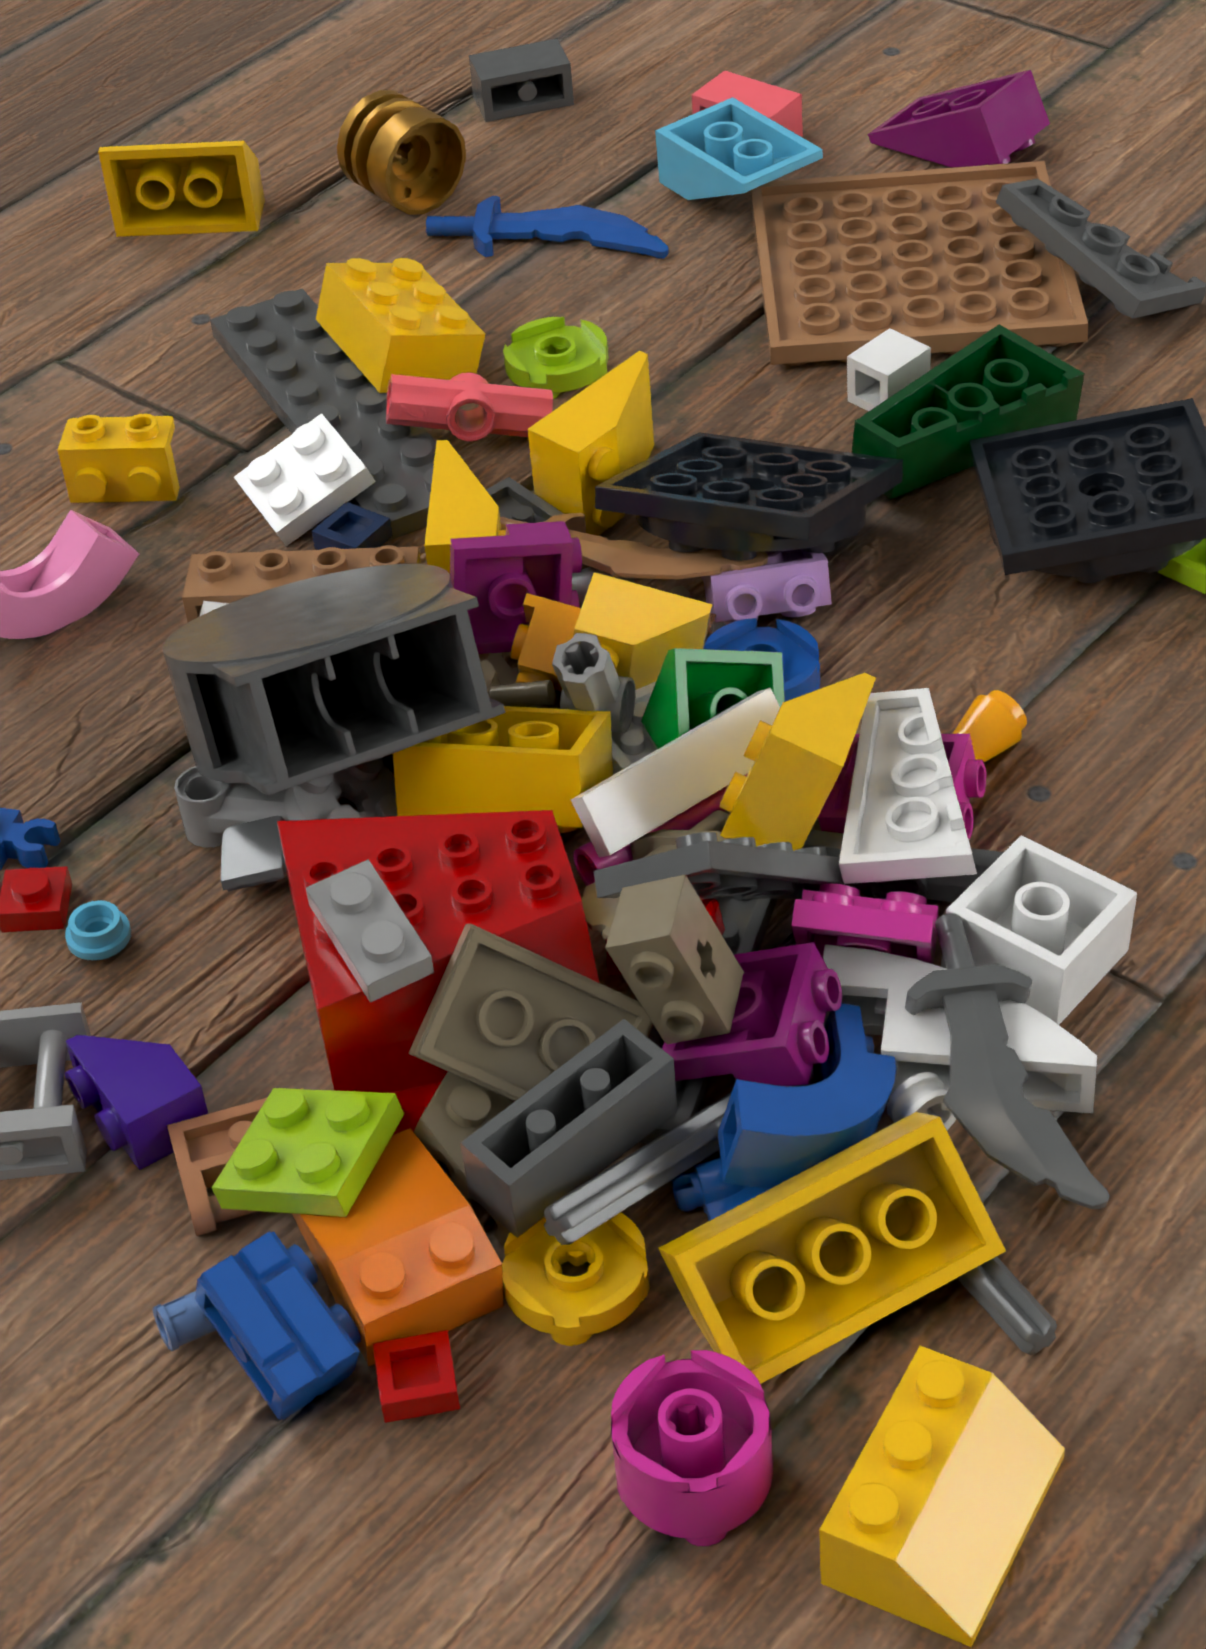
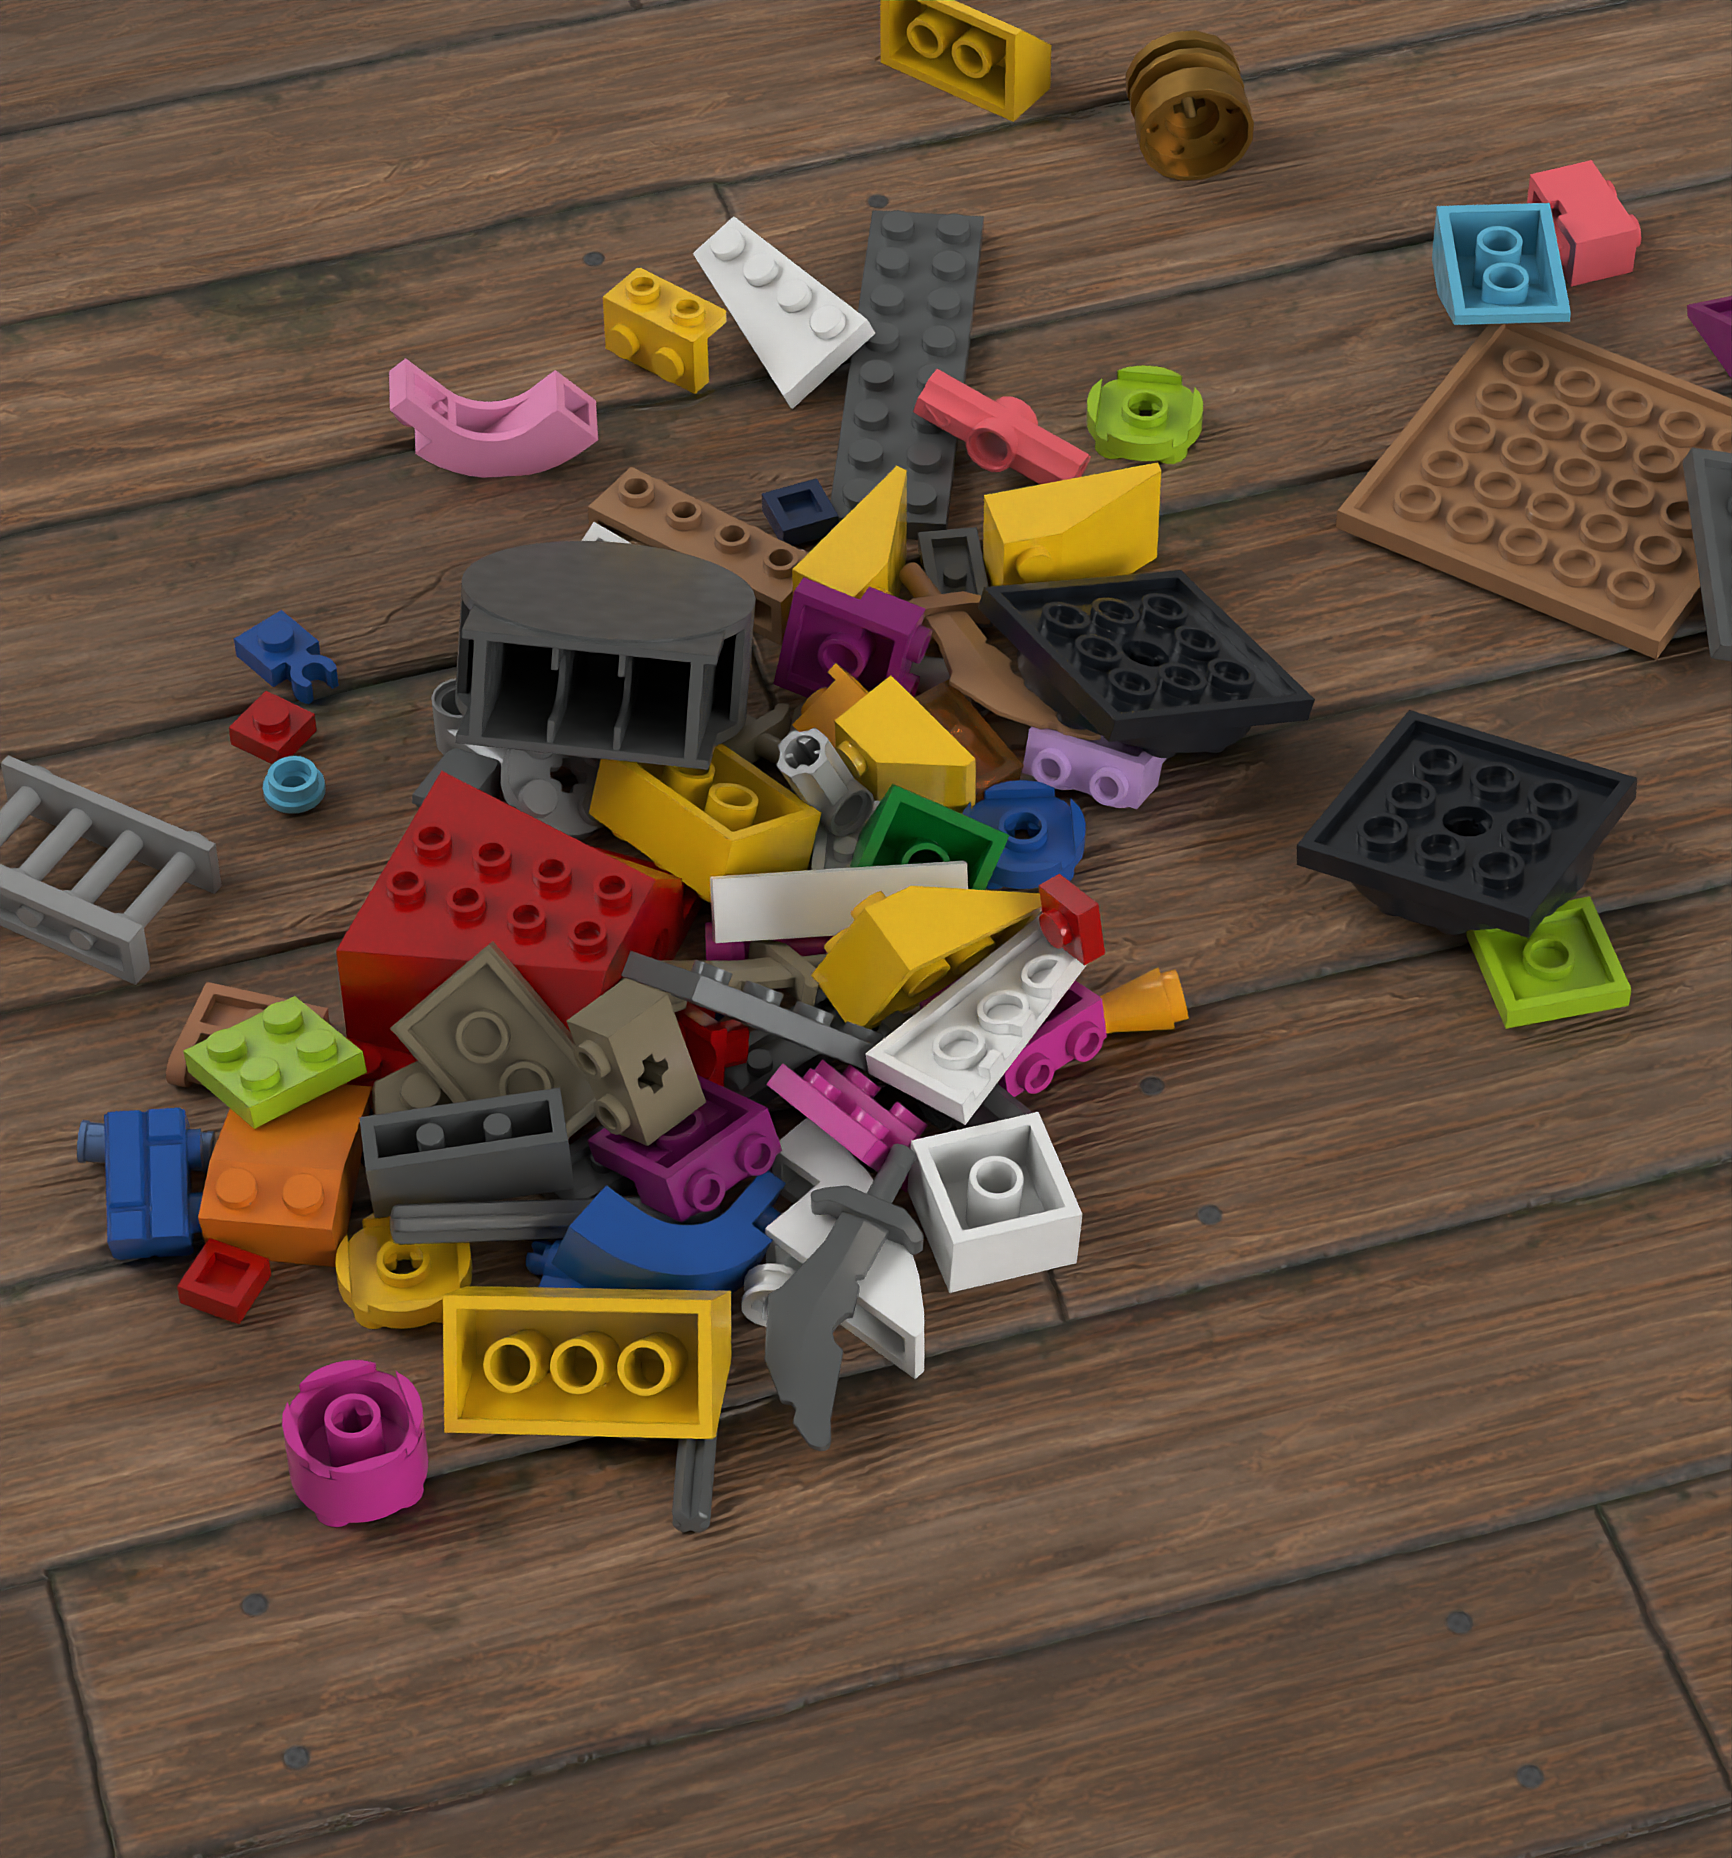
camera: 30 degrees right, 5 degrees up
(134, 1091) = (207, 941): dark purple slope -> none
(213, 410) = (783, 311): none -> white wing
(304, 479) = (803, 434): white plate -> none
(369, 930) = (417, 906): light grey plate -> none
(397, 321) = (1014, 312): yellow brick -> none
(521, 80) = (1402, 65): dark grey brick -> none
(556, 224) = (1324, 278): blue sword -> none
(885, 368) = (1422, 597): white brick -> none
(917, 673) = (1071, 920): none -> red plate
(939, 1498) = (499, 1583): yellow slope -> none
(977, 393) = (1464, 668): dark green wedge -> none

